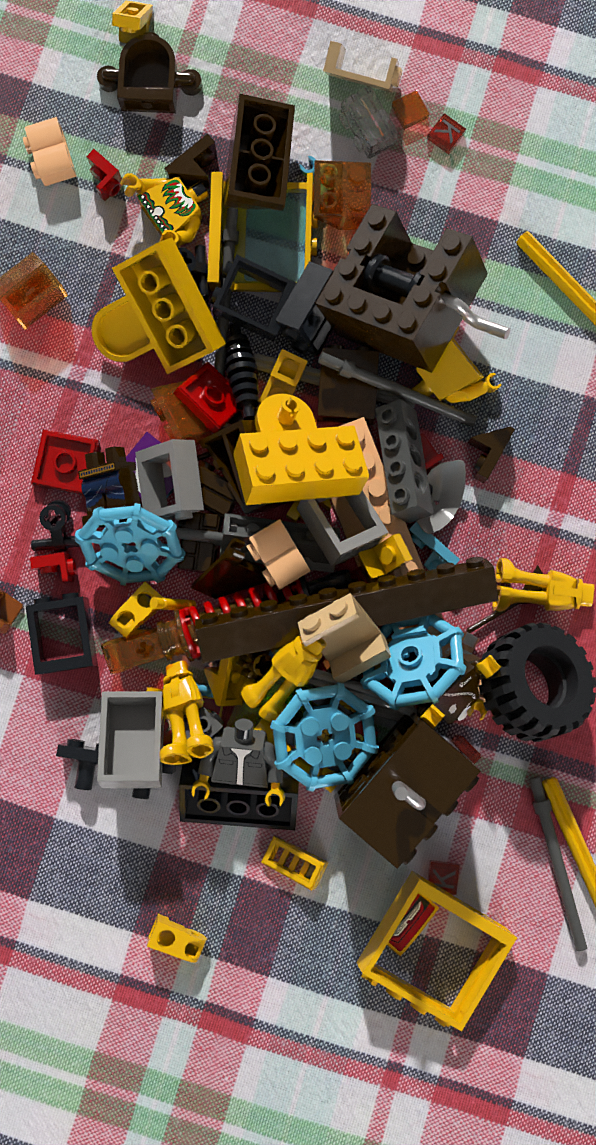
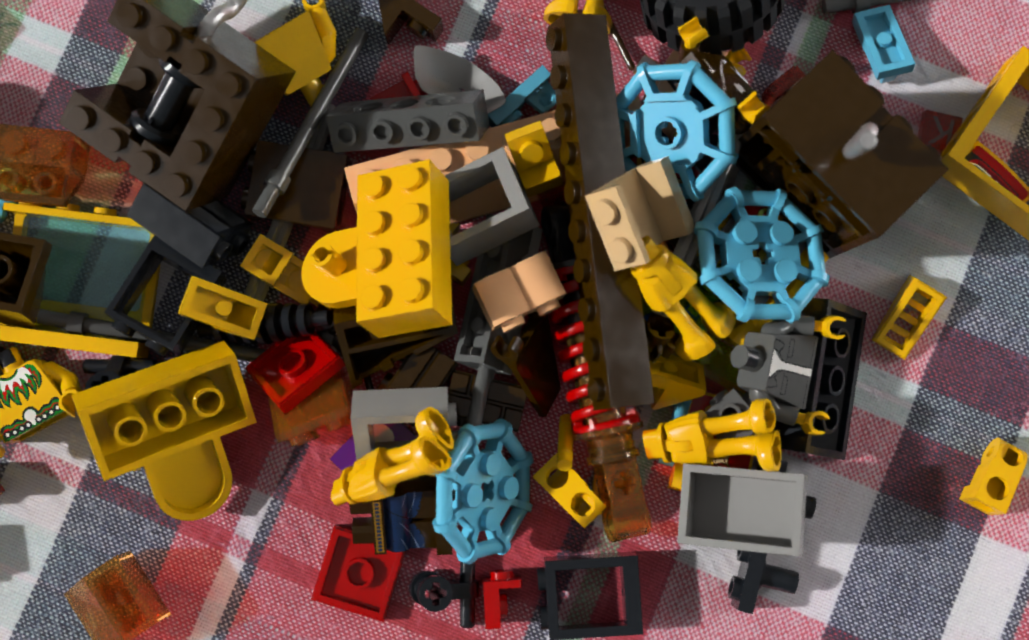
camera: 90 degrees left, 0 degrees up
(137, 466) = (380, 470): none -> yellow piece
(247, 338) = (222, 308): none -> yellow slope
(508, 825) = (883, 43): none -> medium azure hinge

